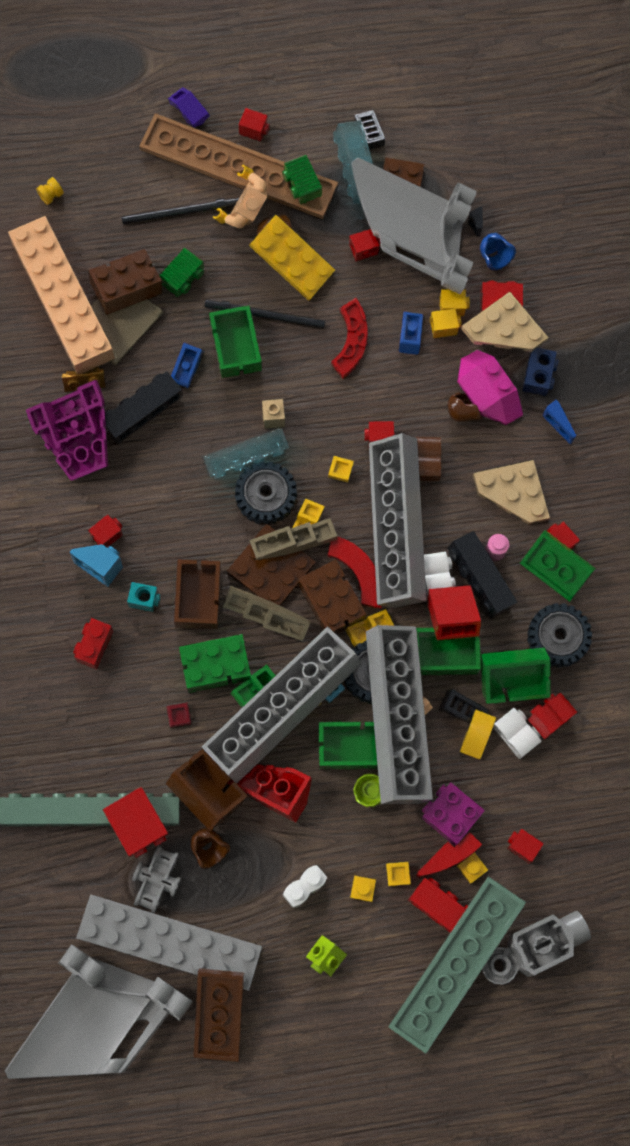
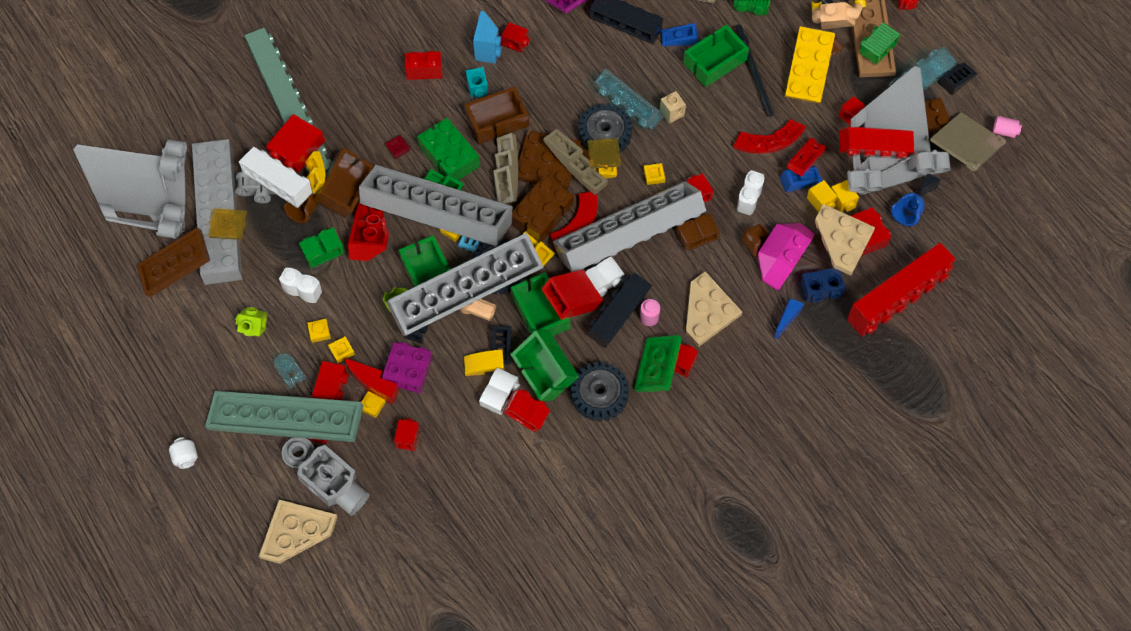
camera: 70 degrees right, 10 degrees down
(169, 860) = (276, 177): none -> white brick
(192, 815) = (317, 171): none -> yellow slope
(203, 936) = (228, 224): none -> clear yellow piece
(268, 846) = (321, 248): none -> green piece
(300, 506) = (604, 153): none -> clear yellow piece
(389, 939) = (284, 365): none -> clear light blue plate
(394, 314) = (806, 157): none -> red plate
(412, 390) = (750, 192): none -> white brick
(421, 241) = (876, 142): none -> red brick
(445, 1088) = (183, 453): none -> white head
(447, 116) = (1006, 127): none -> bright pink brick
(450, 158) = (968, 141): none -> dark tan piece
(580, 1002) = (295, 530): none -> tan plate
(583, 303) = (901, 289): none -> red brick

